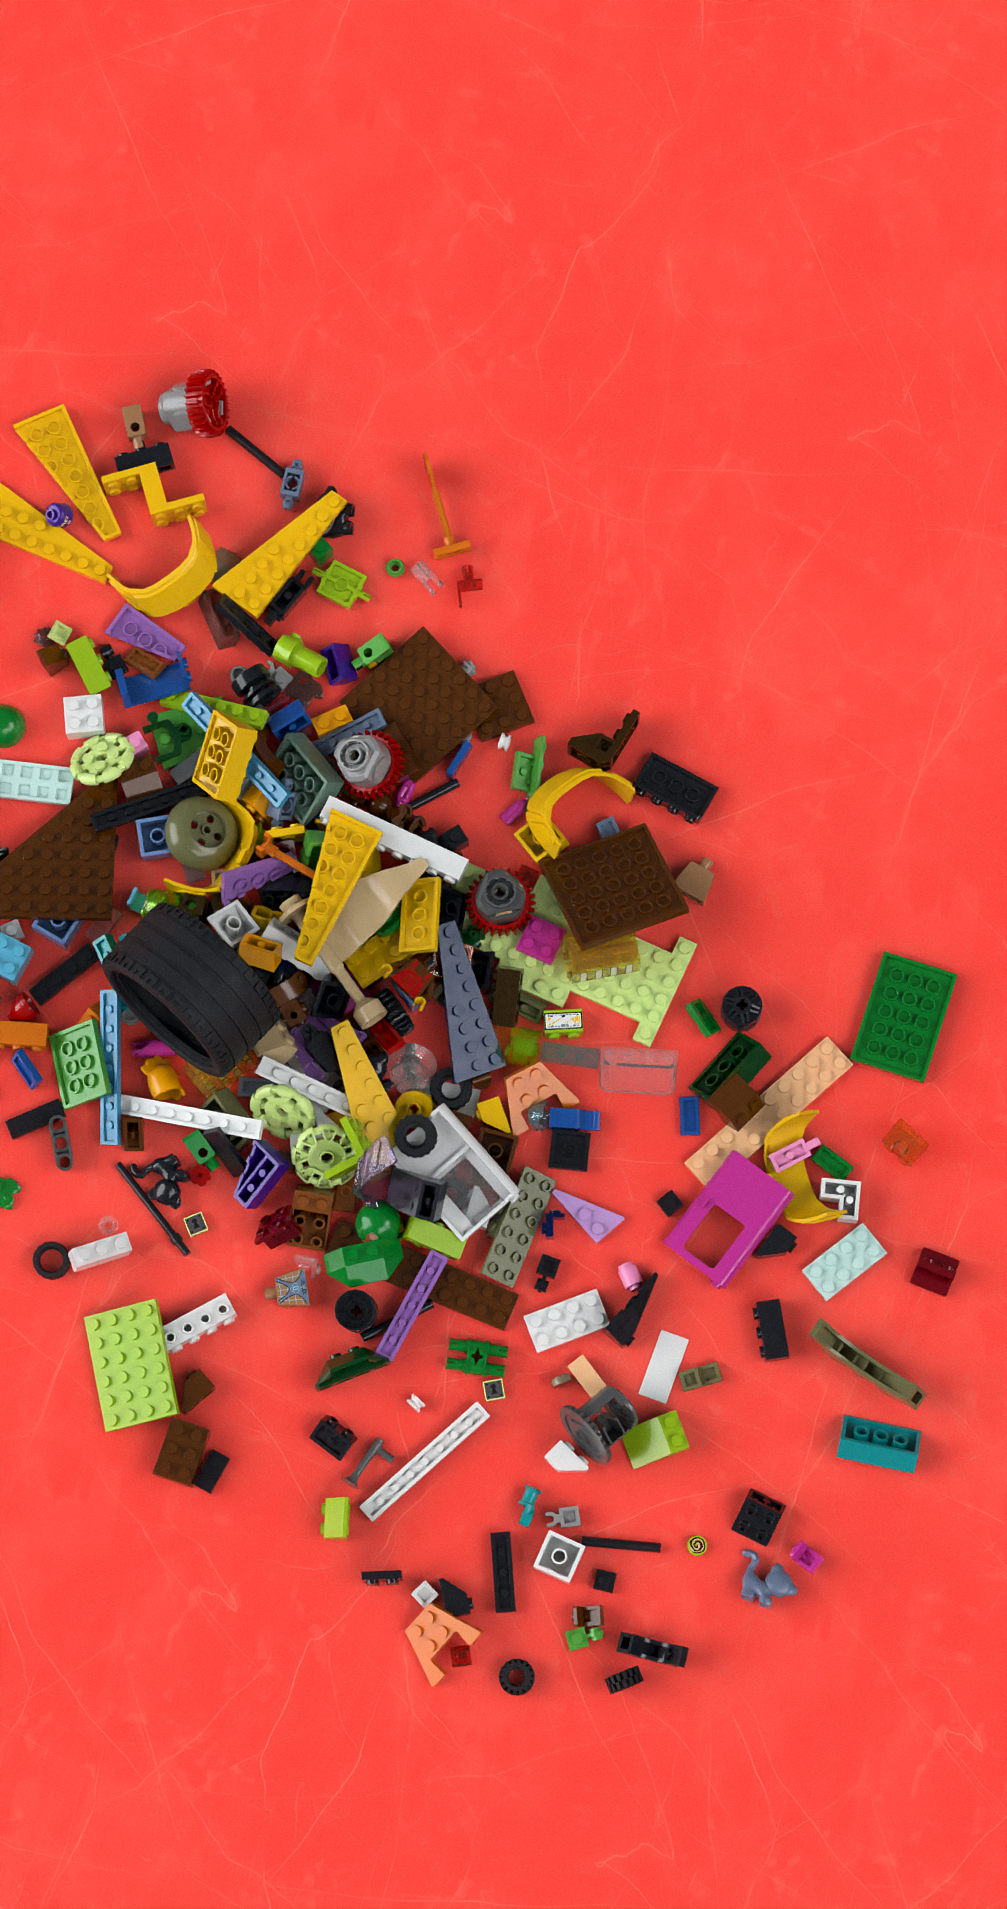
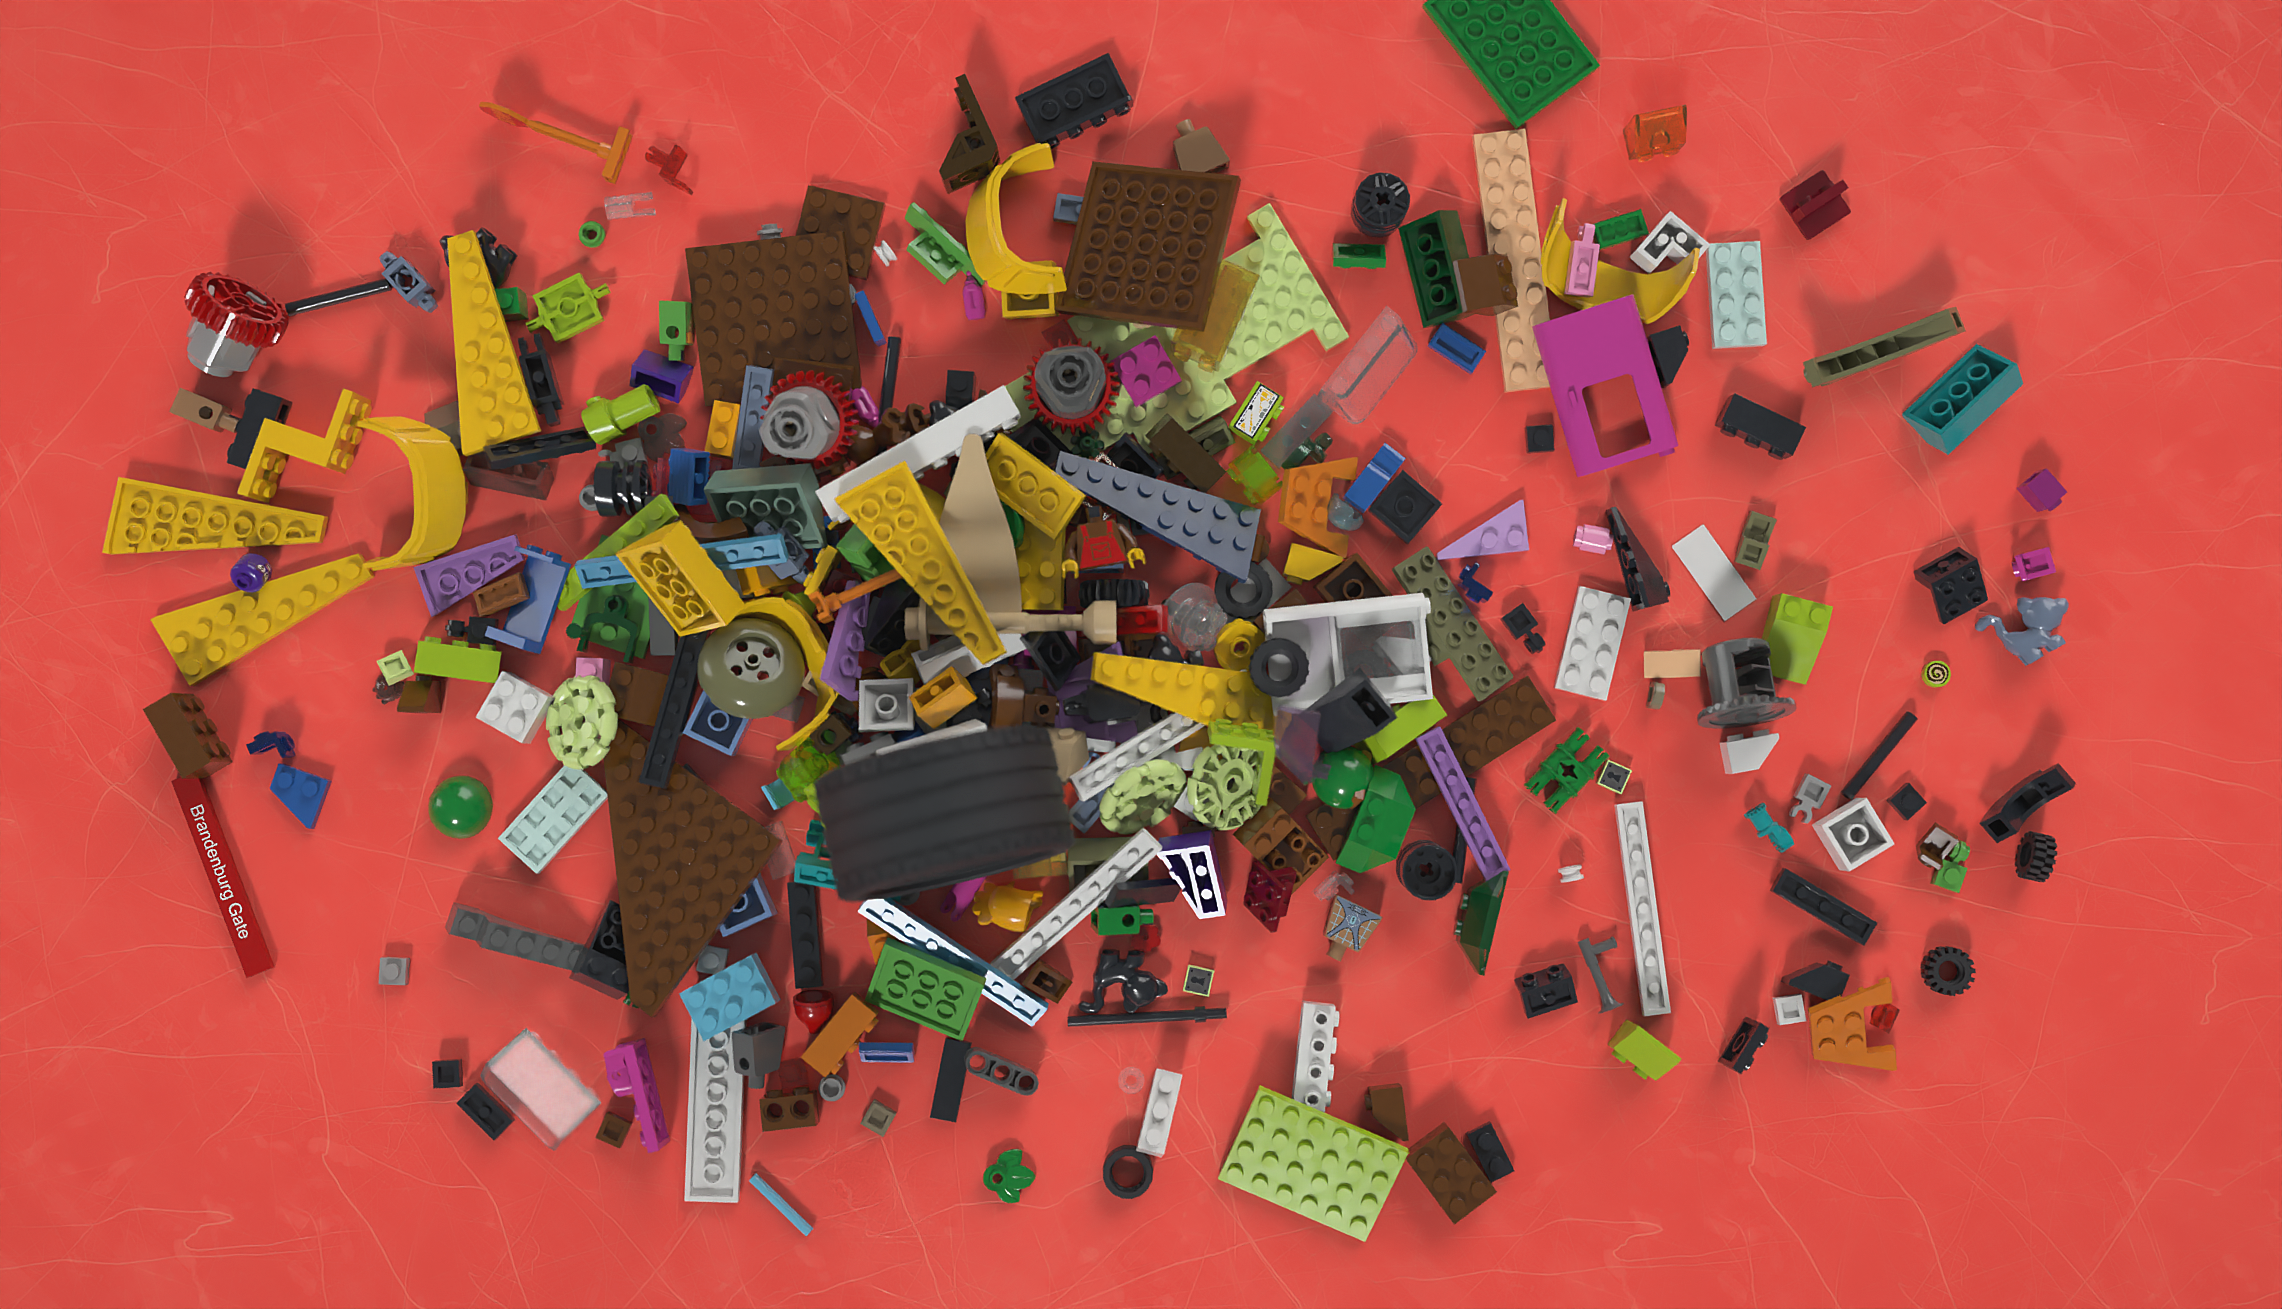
camera: 60 degrees left, 10 degrees up
(560, 1066) = (1315, 449): none -> clear green piece
(856, 1532) = (2042, 491): none -> magenta brick

